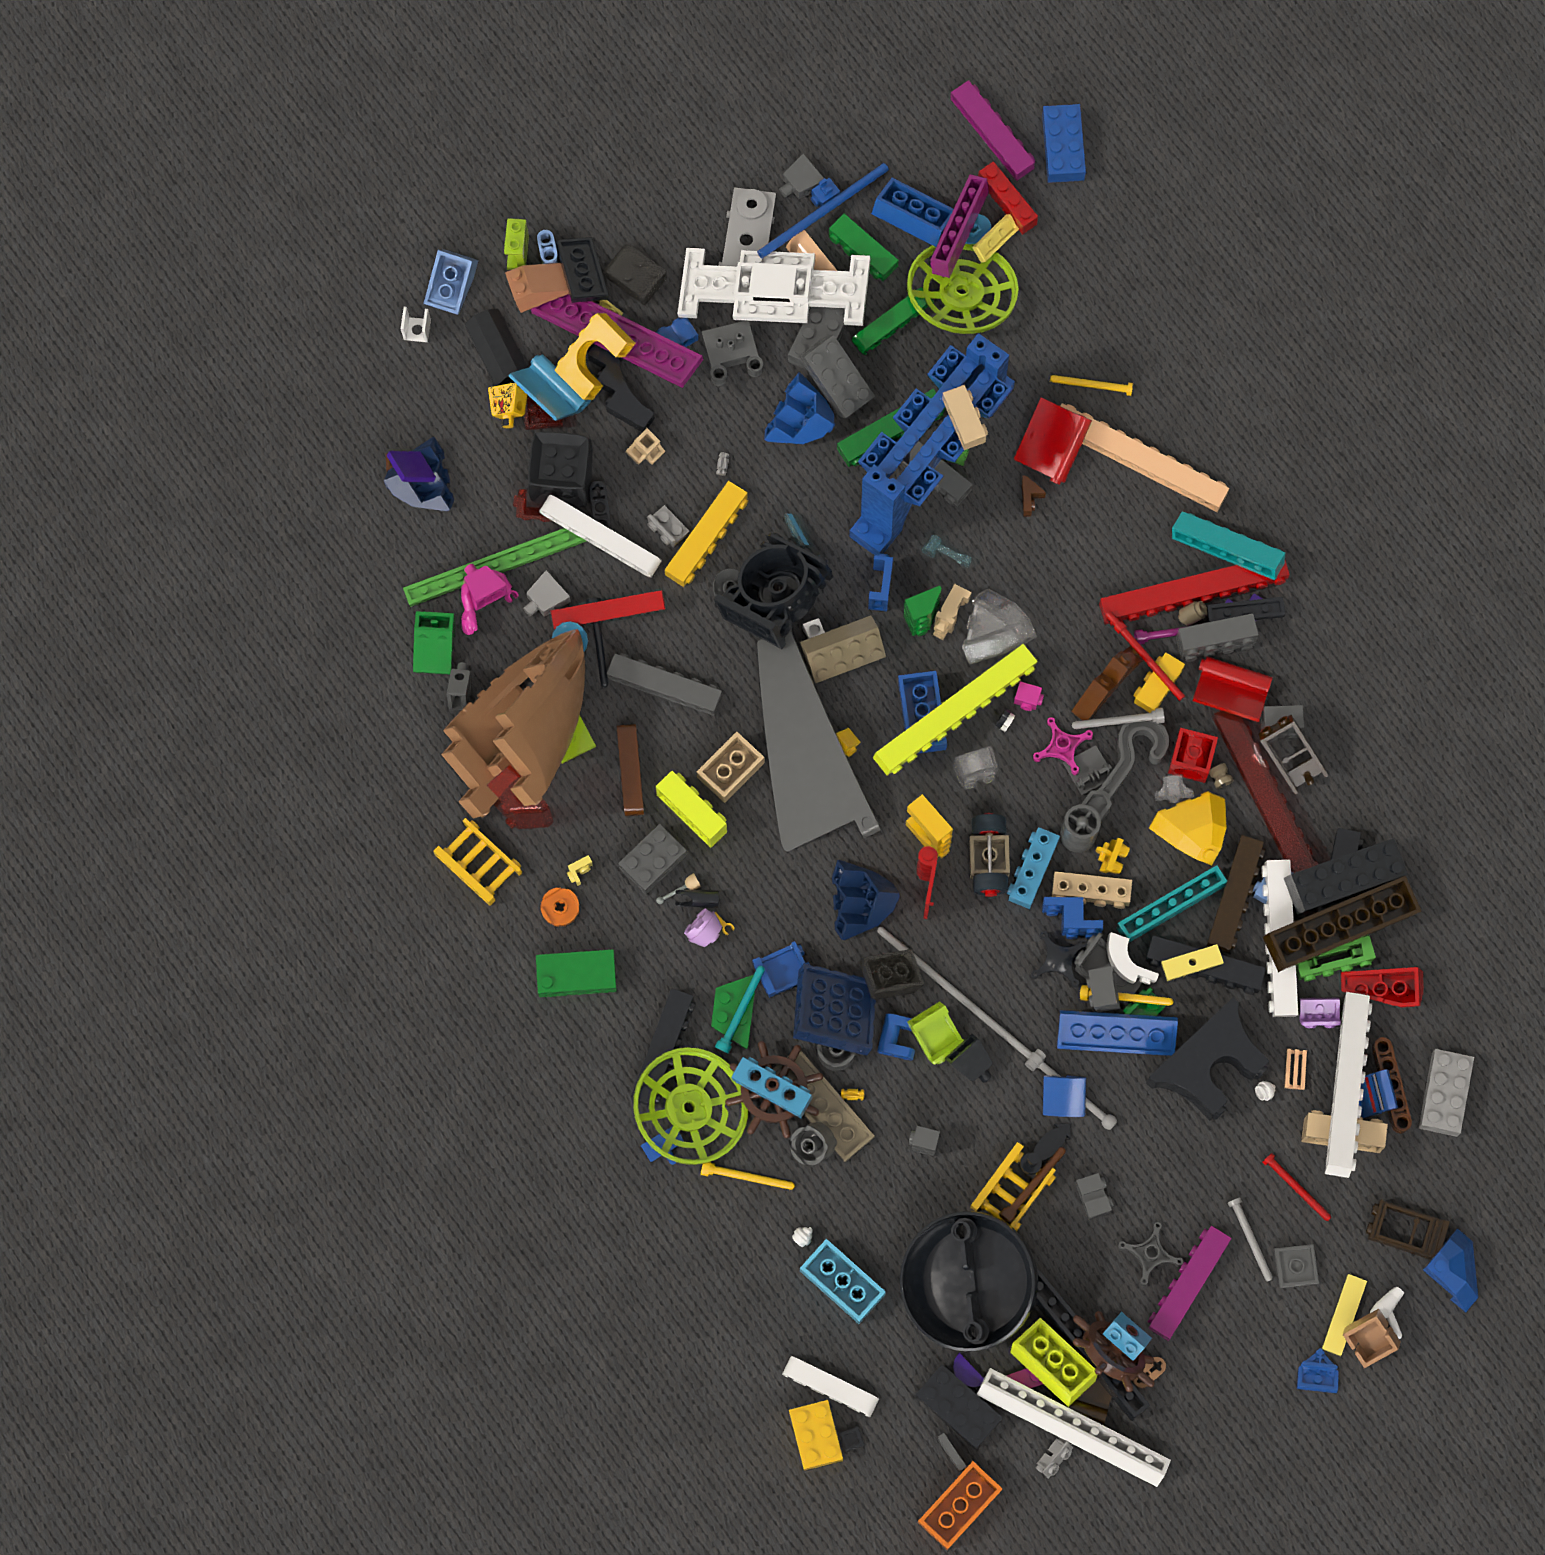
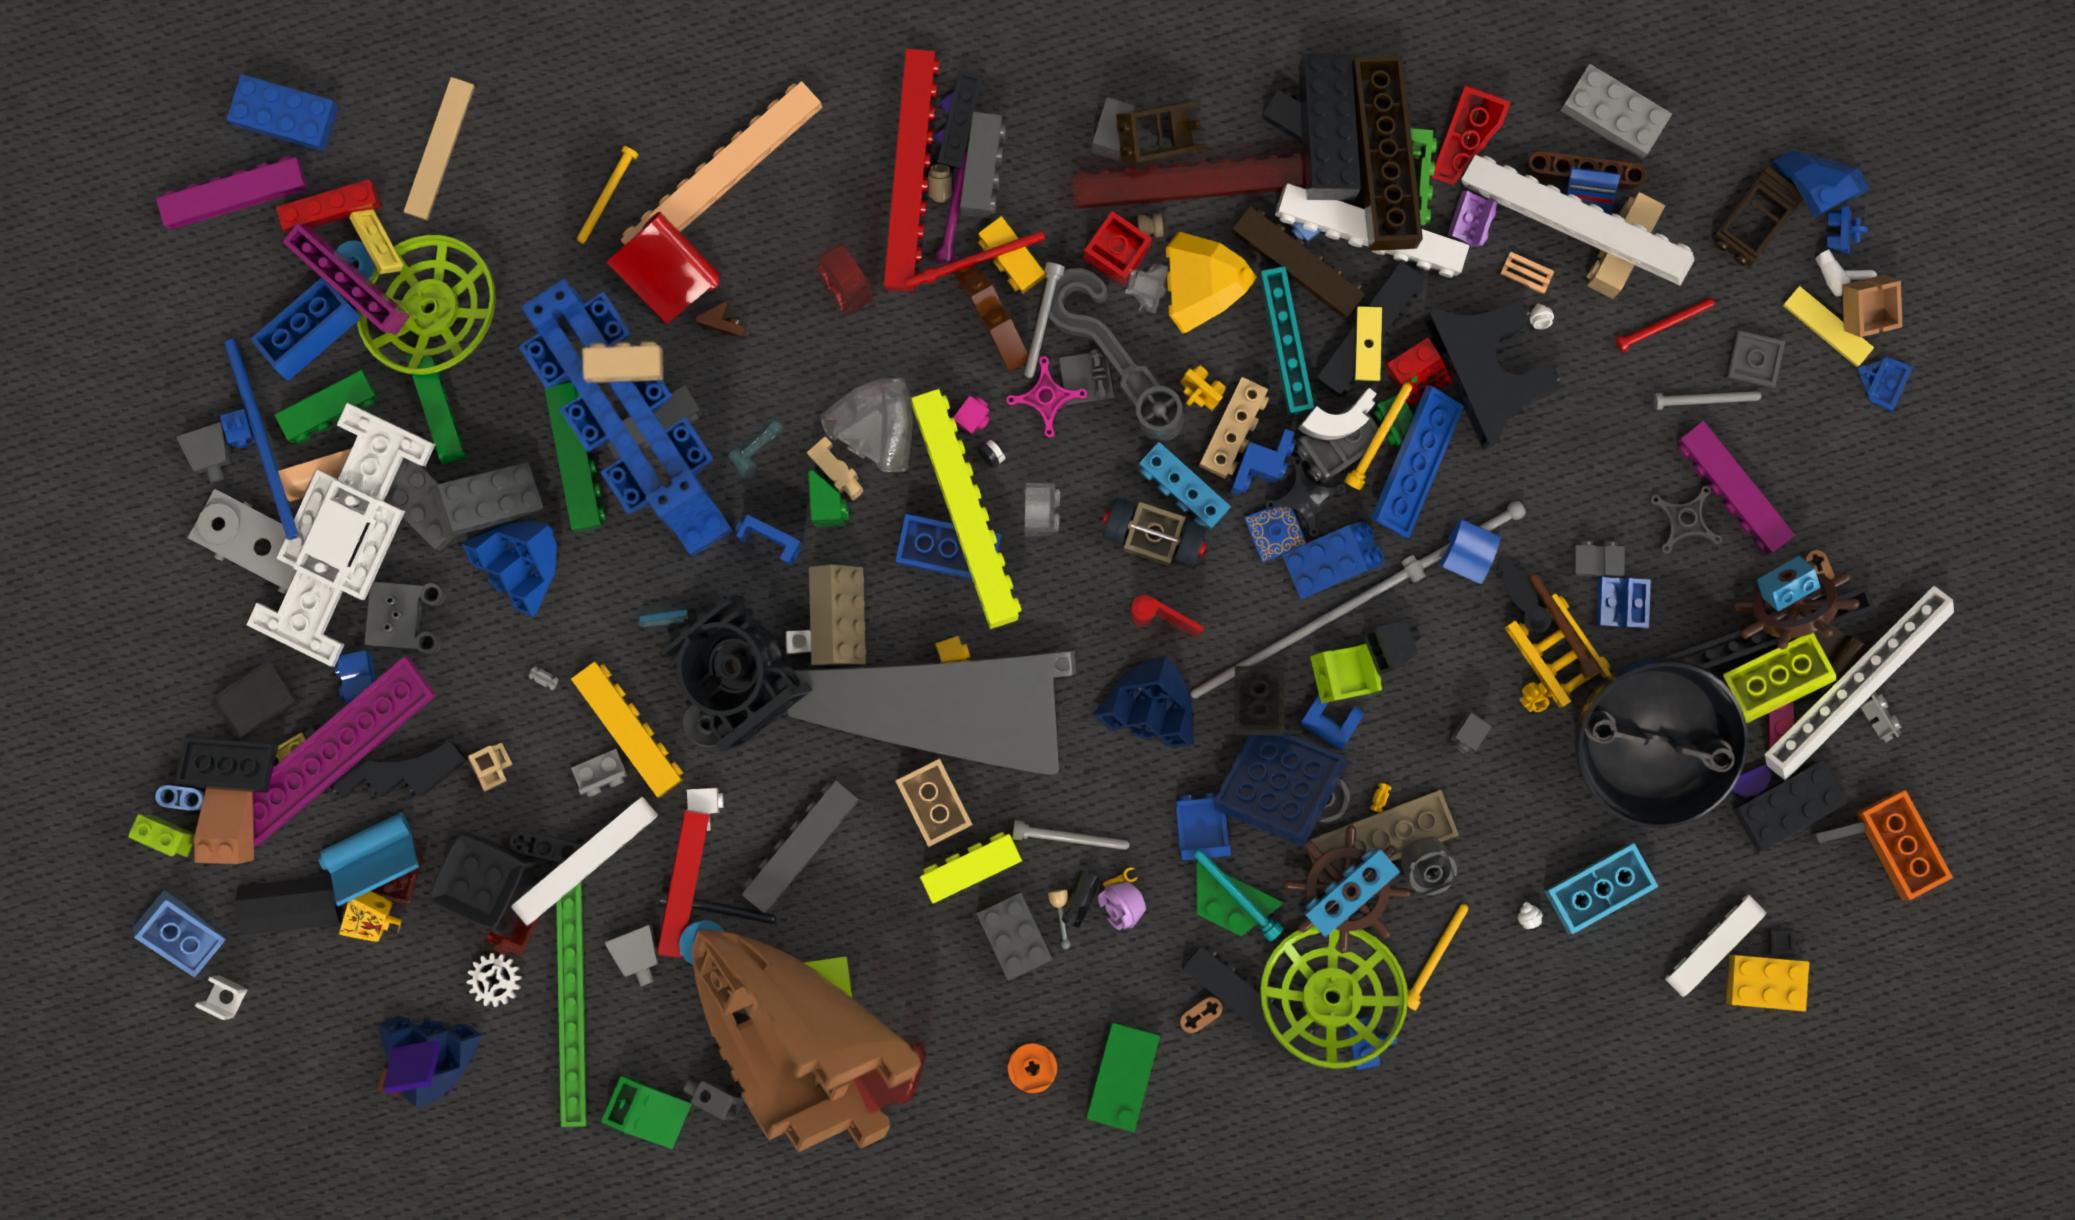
camera: 75 degrees left, 10 degrees up
(473, 880) = (941, 1173): yellow fence -> none
(480, 589) = (602, 1033): dark pink torso -> none
(500, 505) = (498, 968): none -> white gear
(573, 366) = (351, 819): yellow arch -> none
(582, 866) = (992, 1025): light yellow bracket -> none
(630, 769) = (892, 925): reddish brown beam -> none
(644, 1013) = (1204, 1020): none -> medium nougat beam
(674, 606) = (705, 801): none -> white brick
(733, 839) = (1023, 831): none -> light grey piece
(929, 826) = (1101, 591): yellow arch -> none
(971, 1183) = (1535, 697): none -> yellow gear
(1021, 997) = (1333, 559): none -> blue bracket
(1024, 948) = (1274, 532): none -> blue plate
(1069, 1228) = (1623, 602): none -> blue slope
(1080, 258) = (439, 148): none -> tan tile
(1092, 565) = (844, 279): none -> clear red brick
(1103, 989) = (1364, 459): dark grey brick -> none
(1189, 1009) = (1419, 367): none -> red slope
(1228, 545) = (873, 109): teal brick -> none
(1232, 688) = (1051, 172): red door -> none
(1426, 1303) = (1843, 220): none -> blue hips

